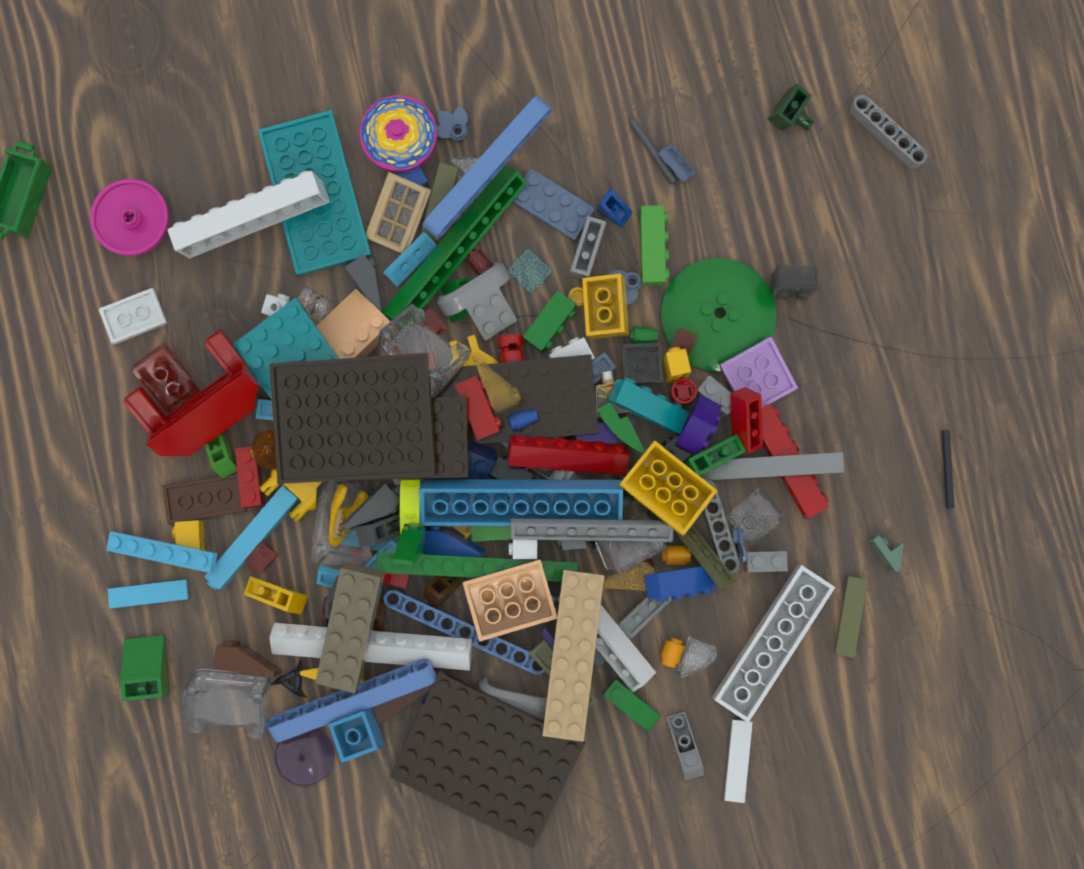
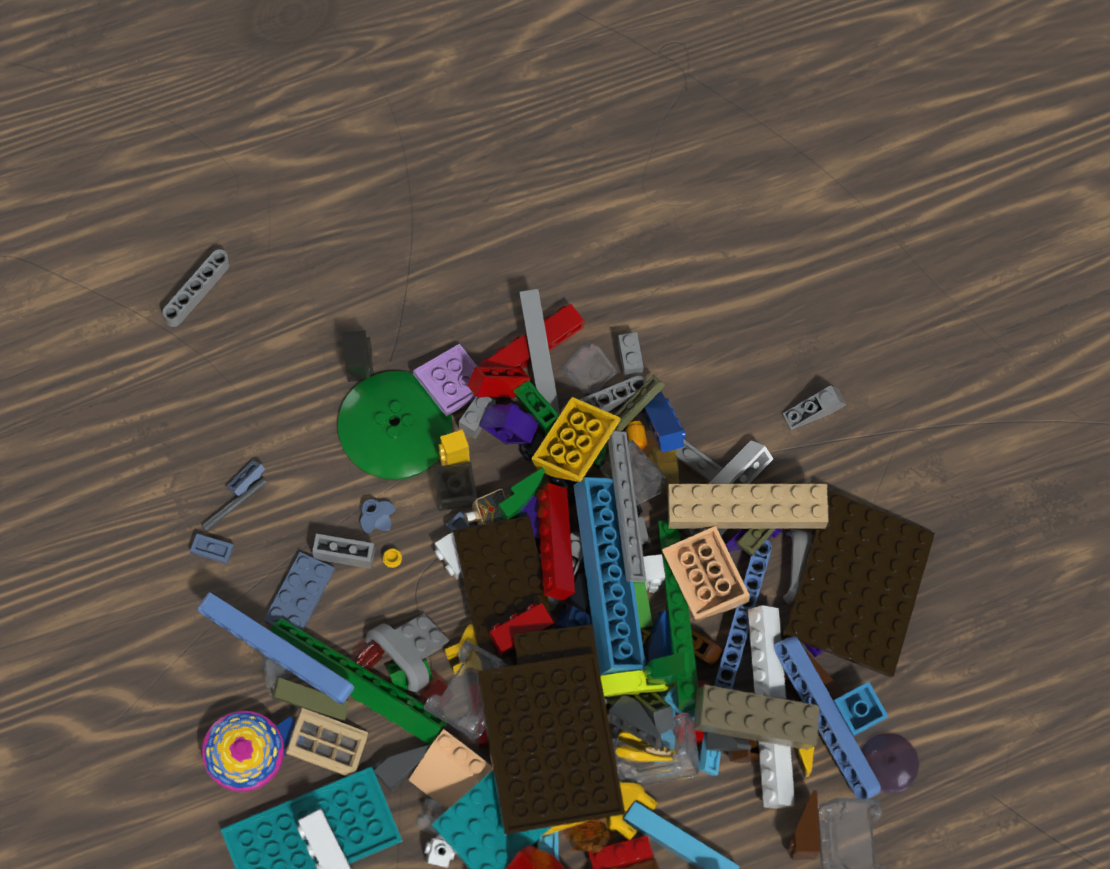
camera: 100 degrees left, 15 degrees down
(261, 558) = (701, 830): clear red brick -> none
(276, 595) = (736, 813): yellow slope -> none
(284, 680) = (825, 781): black piece -> none
(410, 259) = (372, 726): medium azure plate -> none
(451, 122) = (220, 704): sand blue plate -> none
(500, 392) = (501, 607): clear yellow slope -> none
(514, 354) = (455, 613): red wheel -> none
(521, 419) = (527, 586): blue cone -> none
(529, 271) = (370, 609): clear light blue piece -> none
(550, 322) = (422, 580): green brick -> none
(605, 306) = (401, 526): yellow brick -> none
(608, 125) = (212, 549): none -> sand blue plate
(614, 208) = (298, 533): blue slope -> none
(631, 704) = (784, 461): green slope -> none
(643, 335) = (425, 490): green brick -> none
(648, 406) = (496, 473): teal brick -> none
(653, 245) = (332, 491): bright green brick -> none
(672, 652) = (729, 429): light orange brick -> none
(683, 391) = (478, 446): red wheel -> none
(685, 340) = (427, 447): clear red brick -> none
(695, 657) = (731, 406): clear slope -> none
(738, 537) = (615, 378): sand blue plate -> none
(738, 761) = (819, 361): white tile -> none
(773, 642) = (705, 340): white brick -> none
(790, 109) = (181, 377): dark green brick -> none
(850, 616) = (669, 277): olive tile -> none
(892, 556) = (606, 249): sand green slope -> none
(947, 469) = (518, 207): black bar -> none

